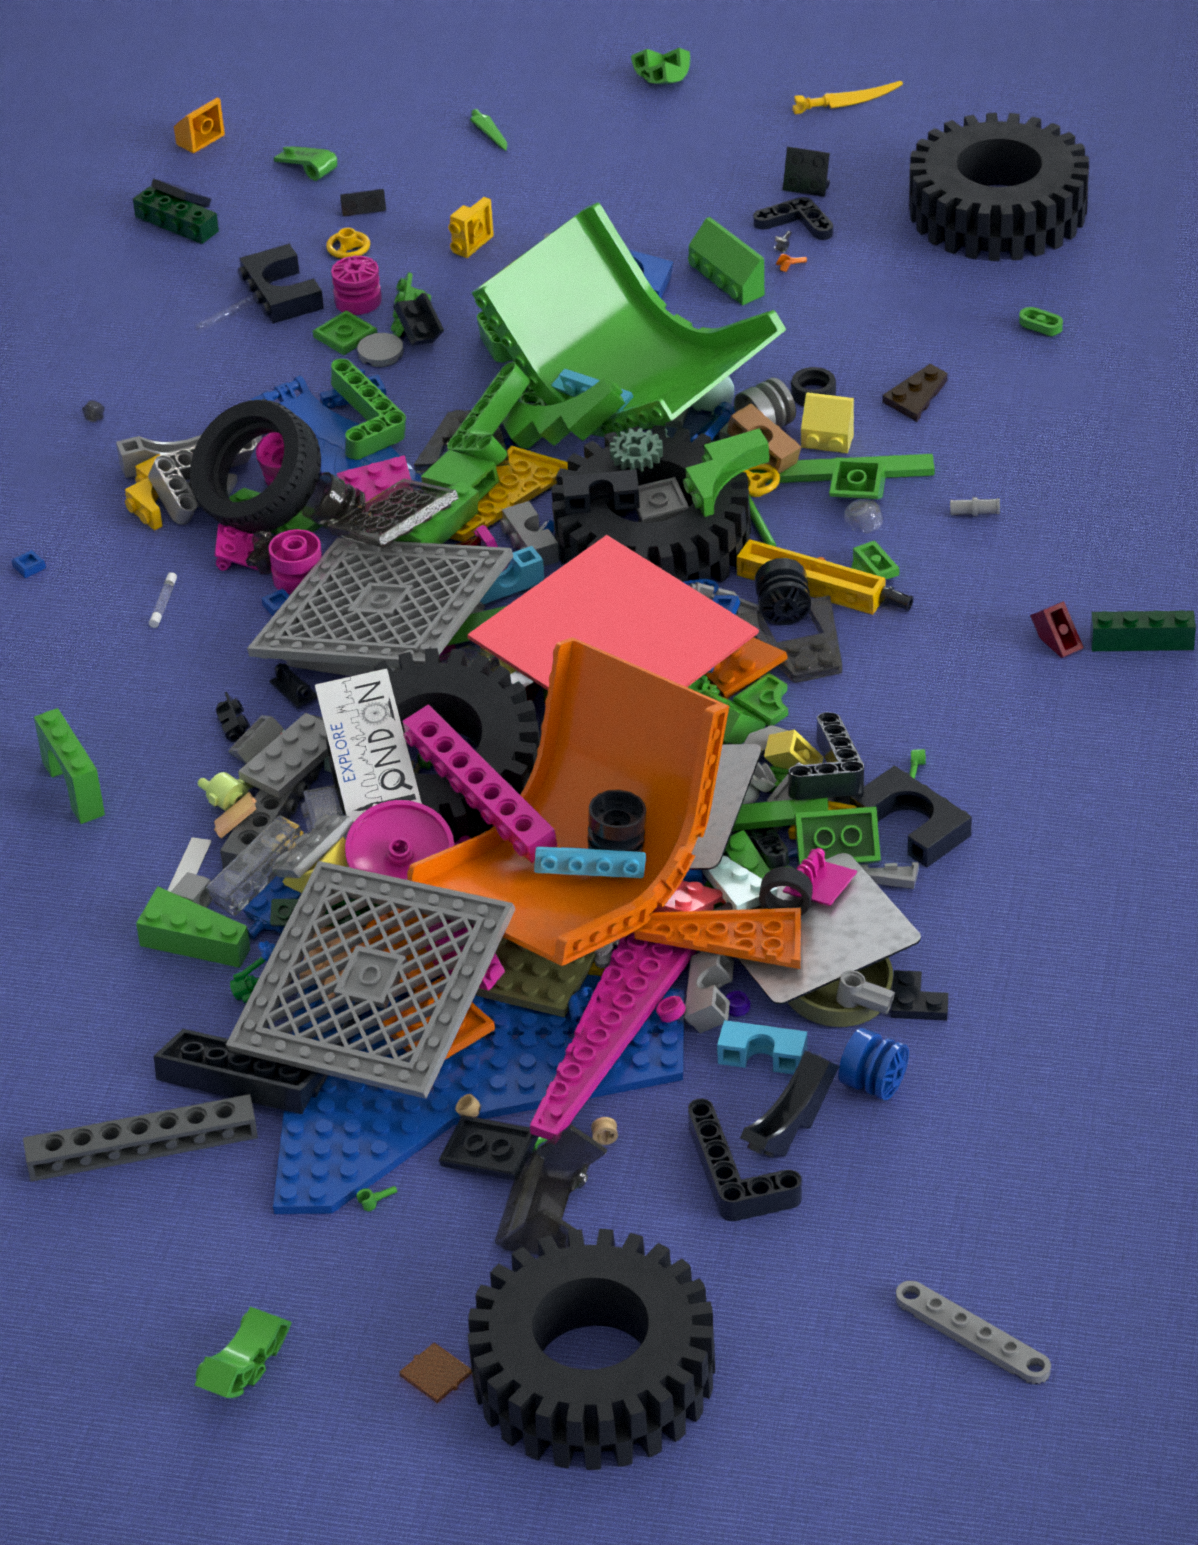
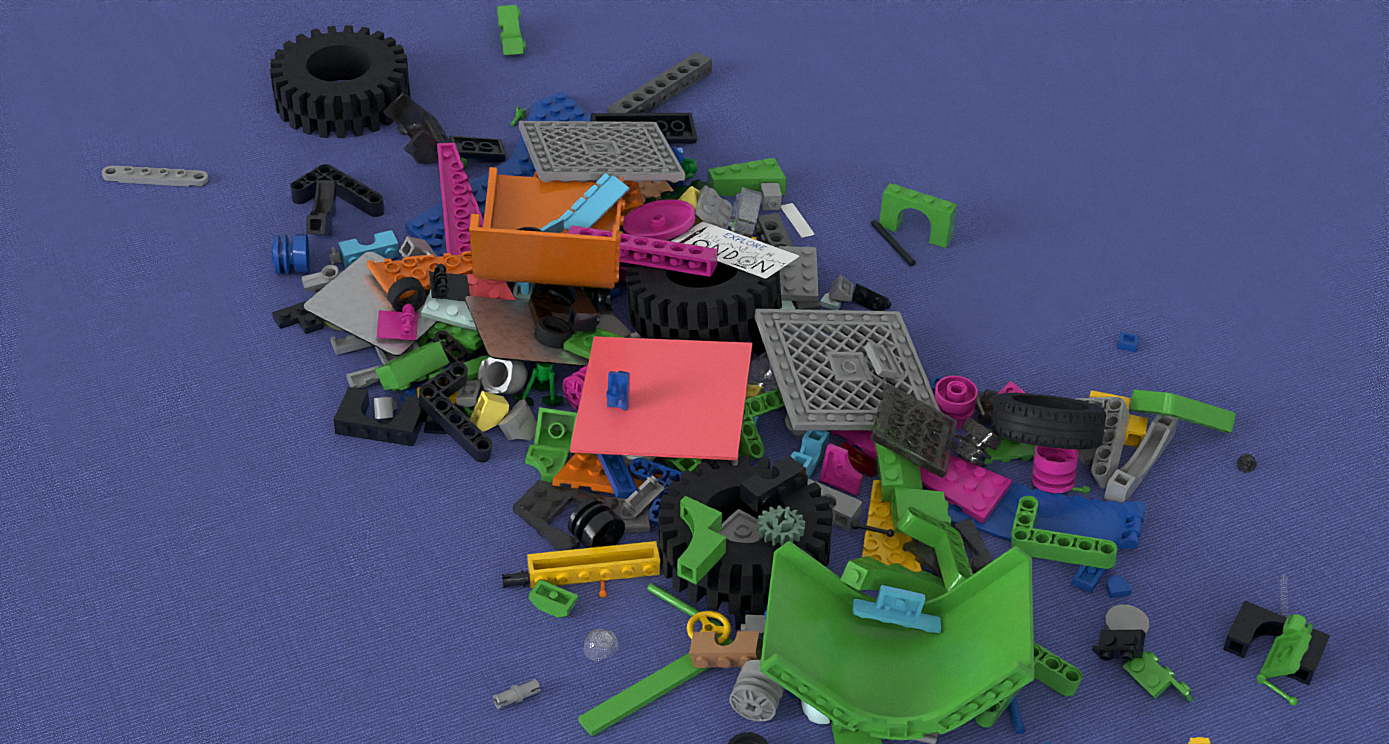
camera: 140 degrees right, 0 degrees up
(119, 427) = (1183, 409): none -> bright green beam
(119, 781) = (895, 245): none -> black bar
(162, 600) = (1014, 356): bar -> none
(224, 790) = (822, 250): yellowish green piece -> none
(235, 815) = (794, 236): light nougat piece -> none
(291, 256) = (1288, 648): none -> bright green plate
(324, 277) = (1261, 679): none -> bright green hinge
(340, 586) = (883, 361): none -> light grey plate
(343, 332) = (1173, 628): bright green tile -> none
(349, 239) = (1288, 719): yellow piece -> none
(356, 285) = (1211, 659): dark pink wheel -> none
(435, 1372) = (420, 69): clear orange piece -> none
(468, 1106) = (505, 159): tan hinge -> none
(469, 864) = (597, 204): none -> medium azure windscreen
(506, 480) = (856, 525): none -> black hinge
(604, 1130) = (423, 176): tan bush -> none
(665, 630) = (618, 389): none -> blue hips
(670, 1009) = (434, 237): dark pink tile -> none
(724, 887) = (448, 285): none -> black hinge
(827, 423) = (695, 707): light yellow slope -> none
(858, 478) = (622, 656): bright green slope -> none
(899, 811) = (384, 407): none -> light grey piece
(917, 758) = (406, 464): bright green hand -> none
(1057, 629) = (373, 603): dark red slope -> none
(1142, 631) = (301, 630): dark green brick -> none

